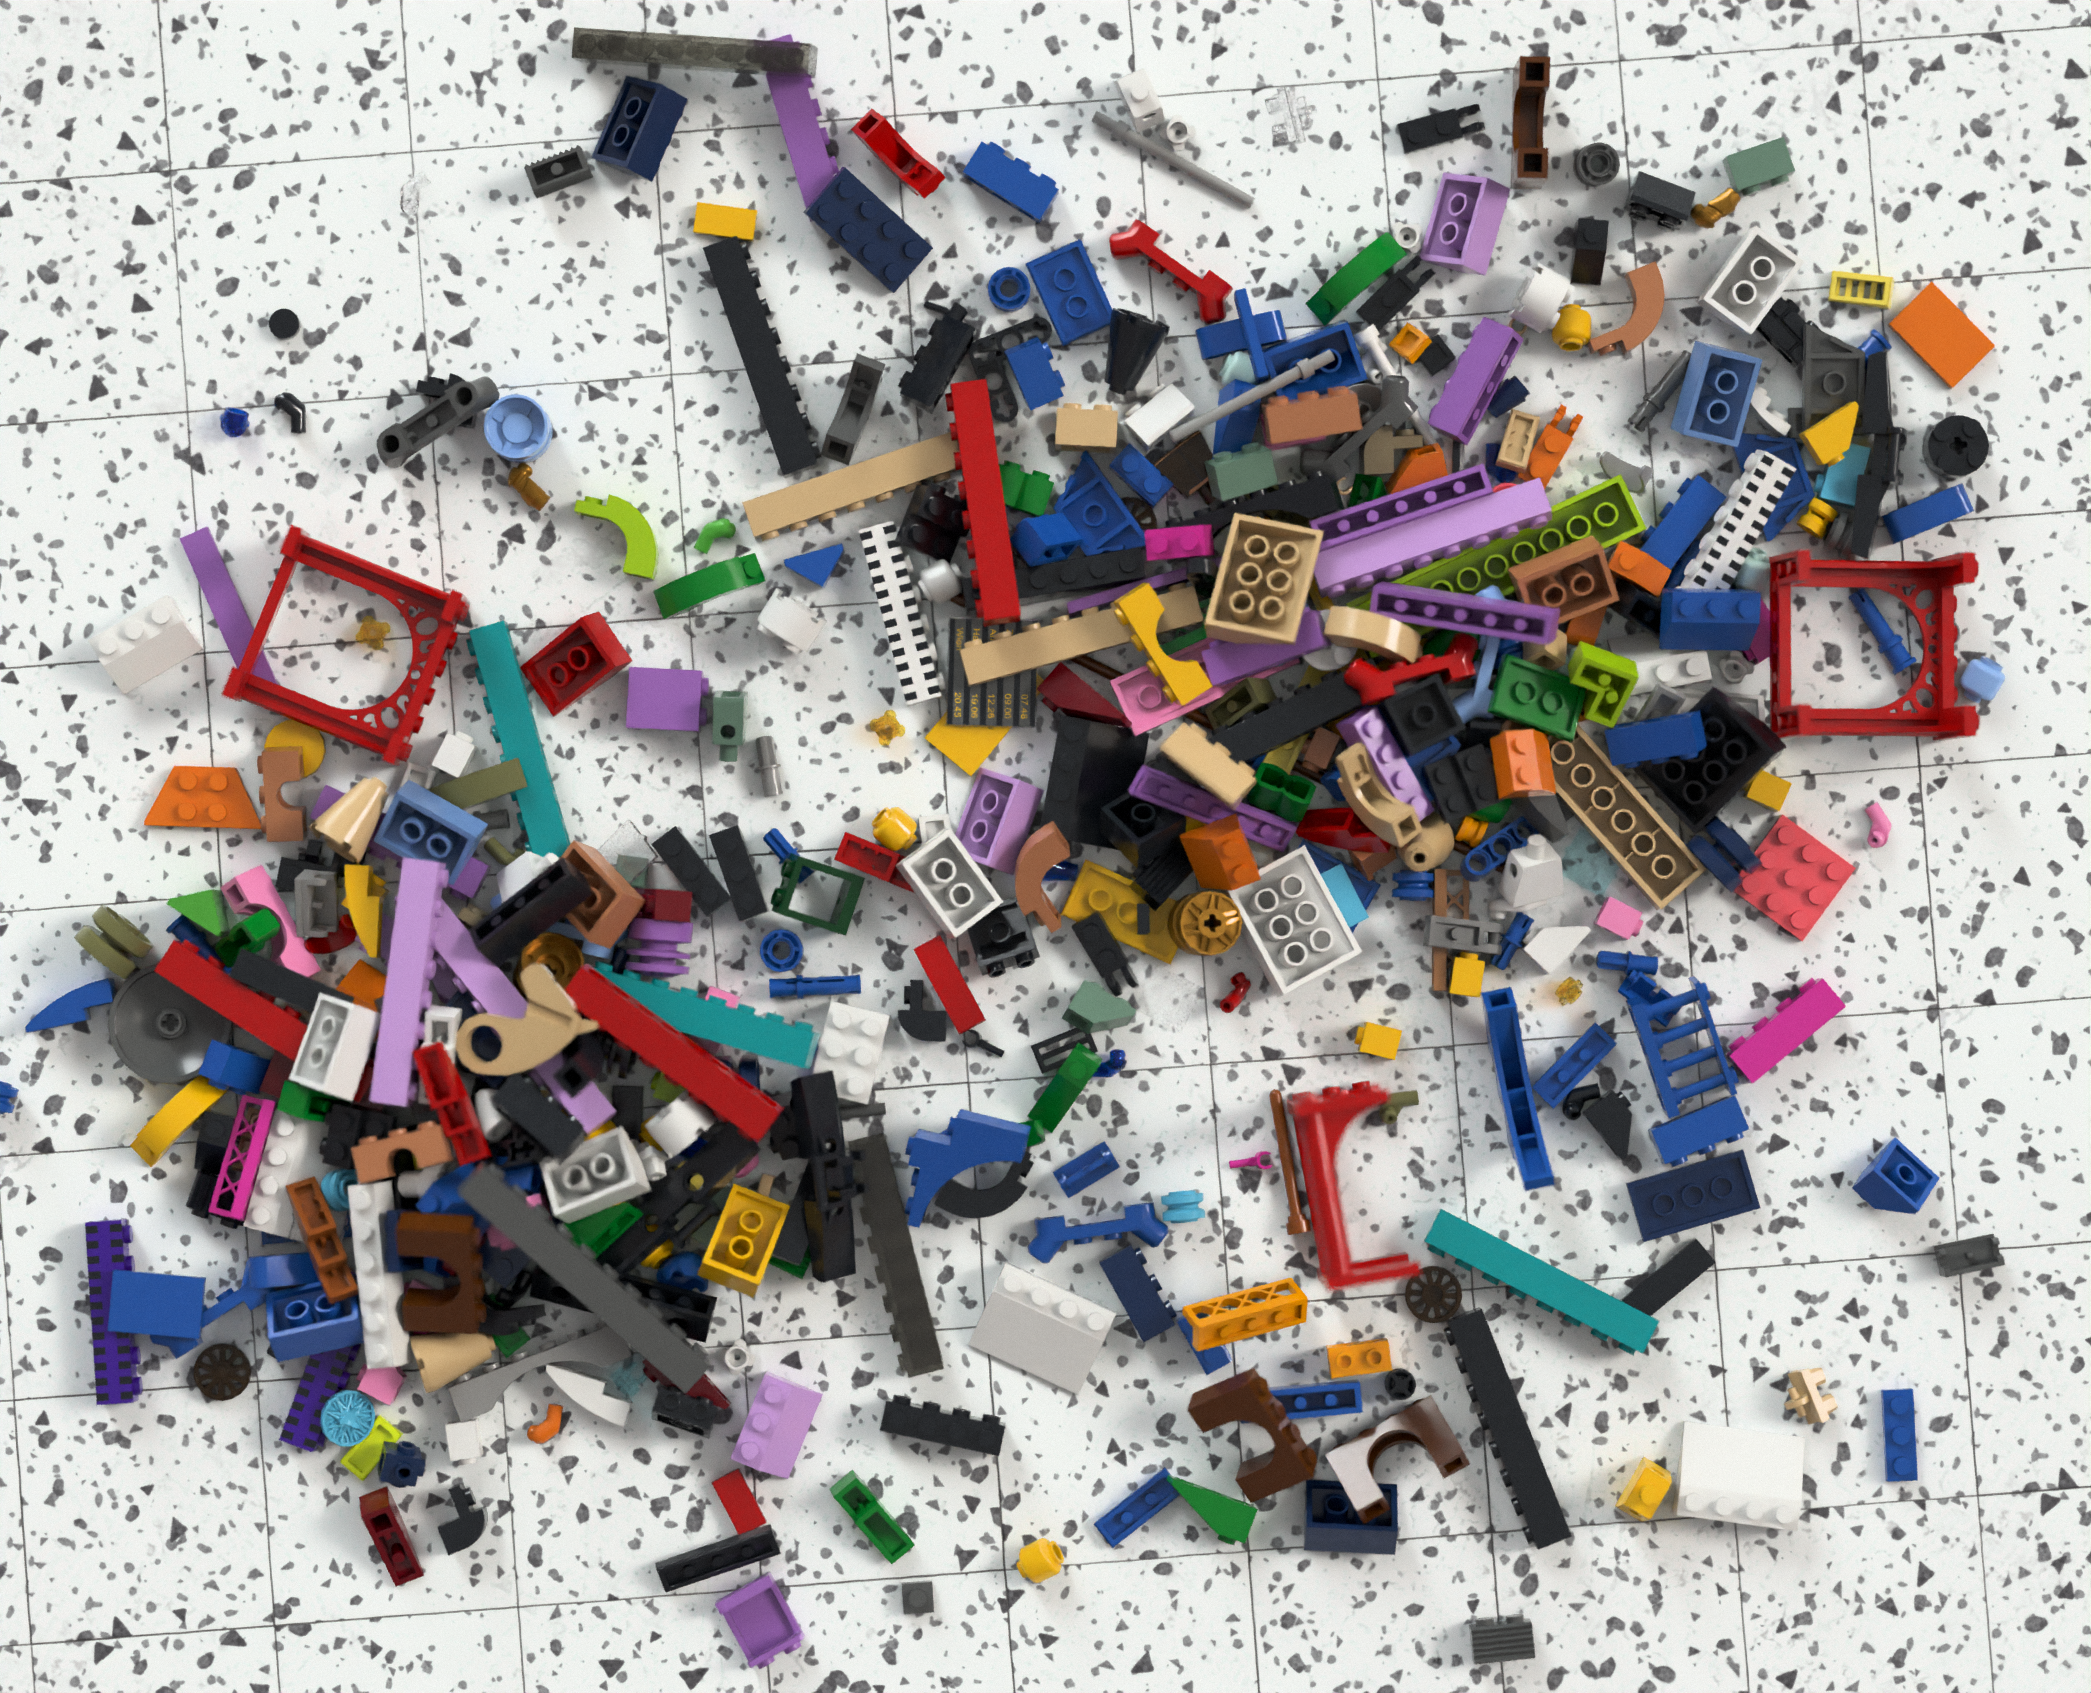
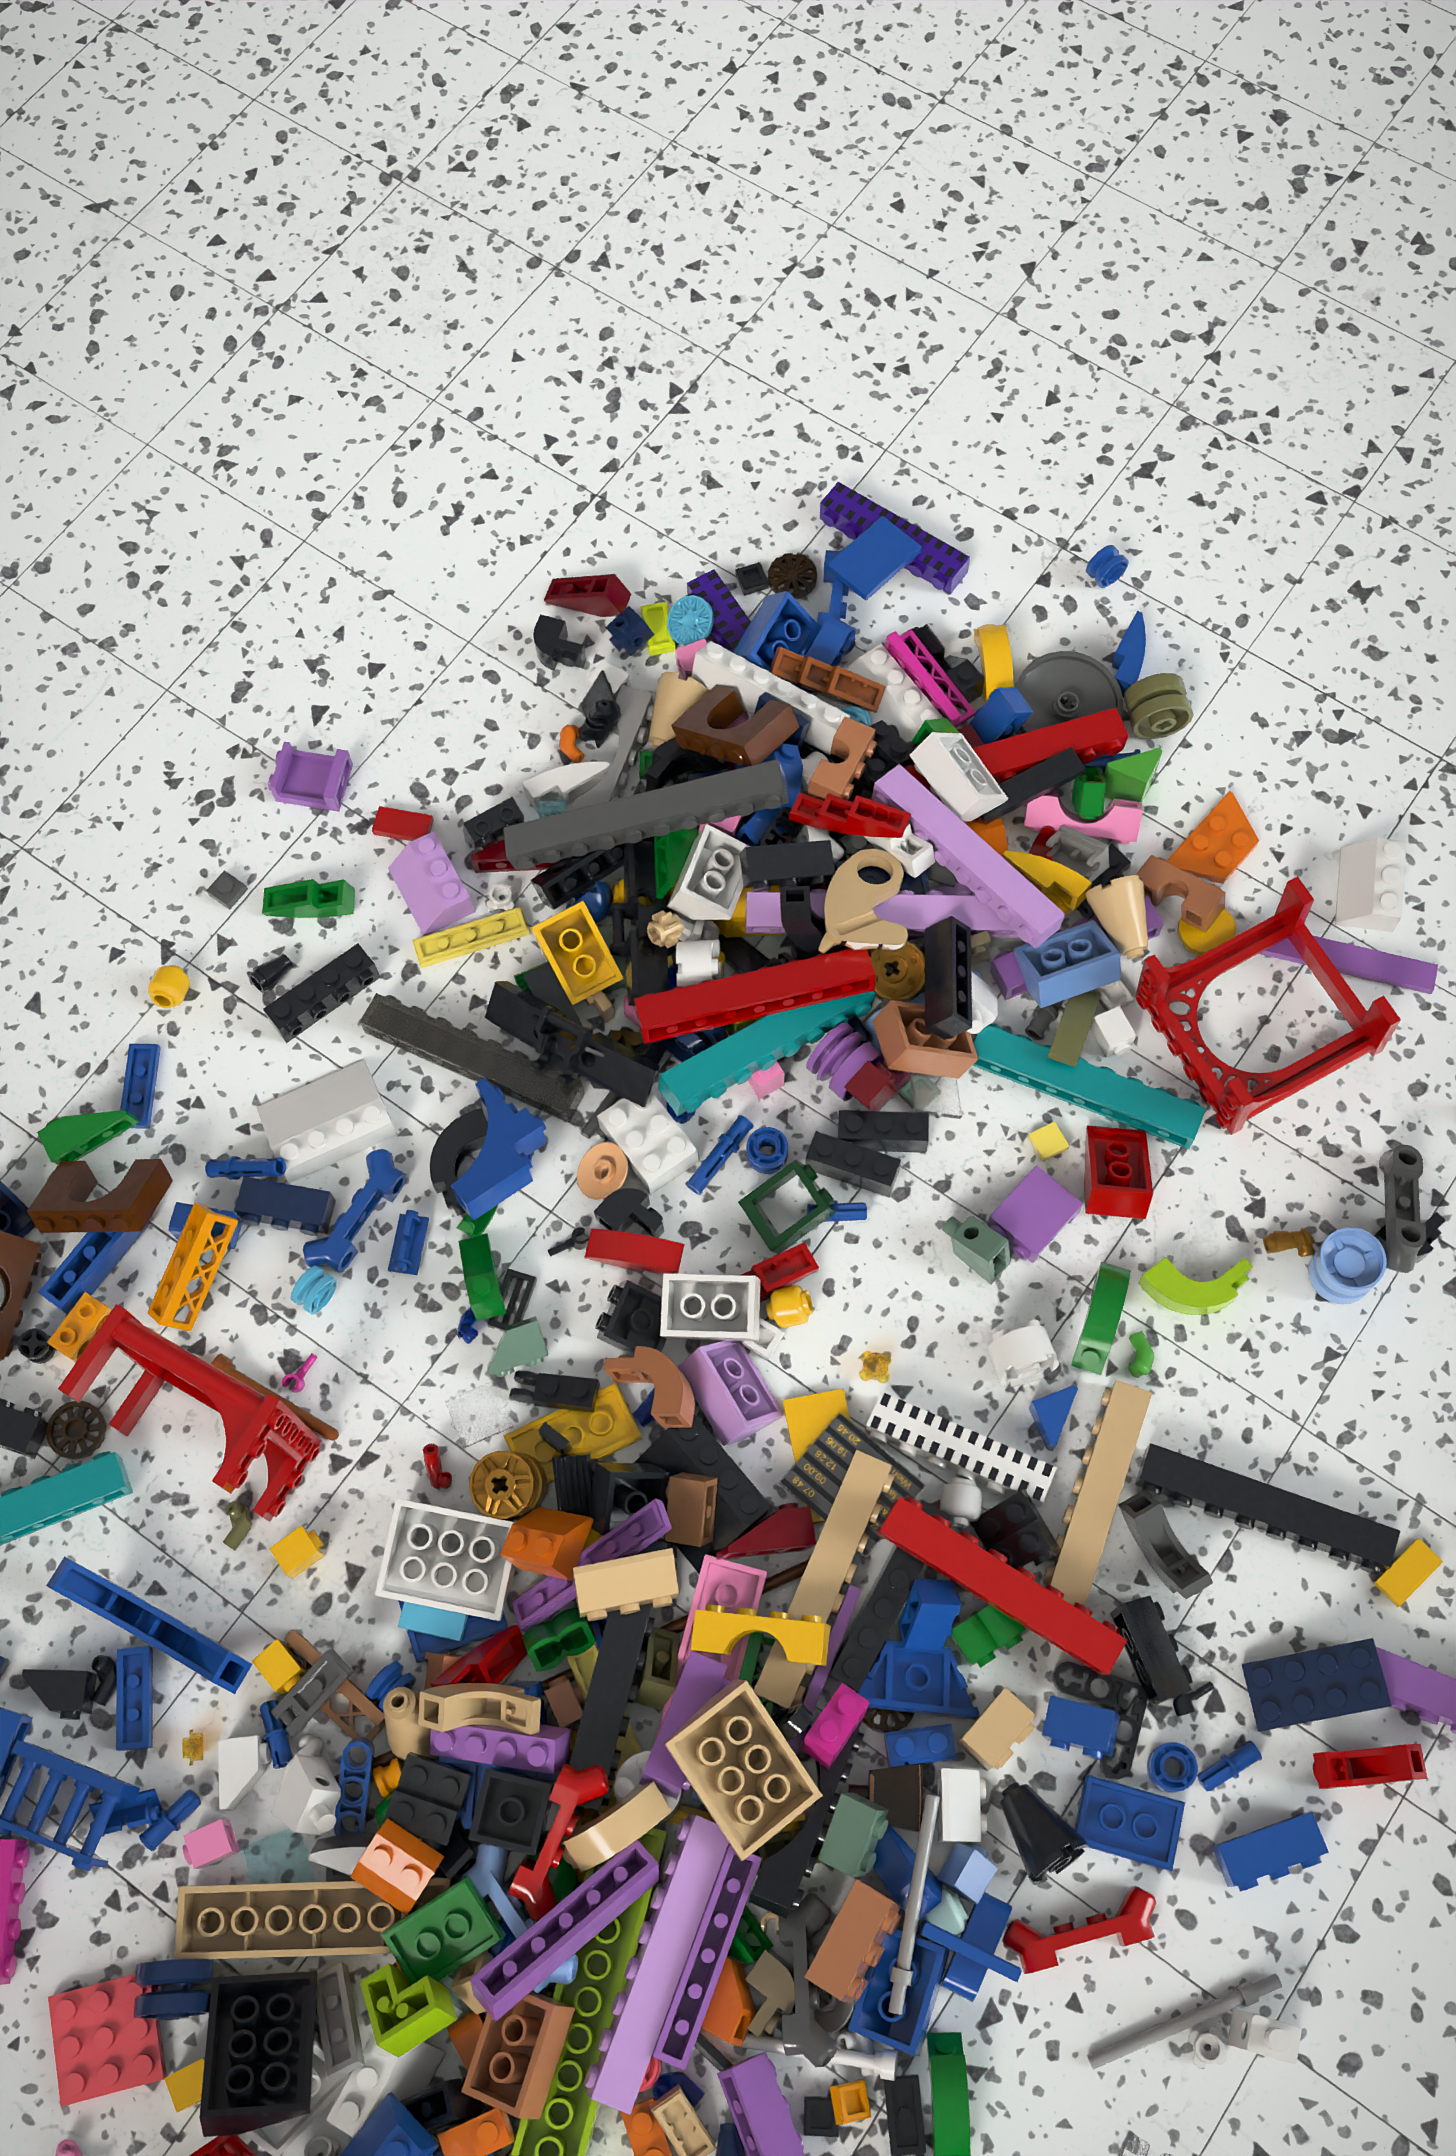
camera: 135 degrees right, 20 degrees down
(252, 1407) = (752, 578): none -> black tile
(368, 625) = (1257, 1038): clear yellow plate -> none
(500, 853) = (1010, 1009): olive arm -> none
(500, 1419) = (600, 711): none -> black hinge
(591, 736) = (1048, 1141): none -> light yellow tile
(670, 1176) = (665, 929): none -> tan gear
(717, 1558) = (378, 782): black tile -> none
(768, 766) = (918, 1252): light grey axle -> none
(792, 1352) = (471, 937): none -> light yellow tile
(910, 1075) = (602, 1171): none -> light nougat dish
(960, 1488) = (270, 973): none -> black cone
(974, 250) = (1229, 1766): none -> blue axle
(1110, 772) = (691, 1508): none -> medium nougat brick
(1141, 1357) = (235, 1167): none -> blue pin
(1198, 377) = (967, 1872): none -> medium blue brick
(1656, 739) = (315, 2014): blue brick -> none

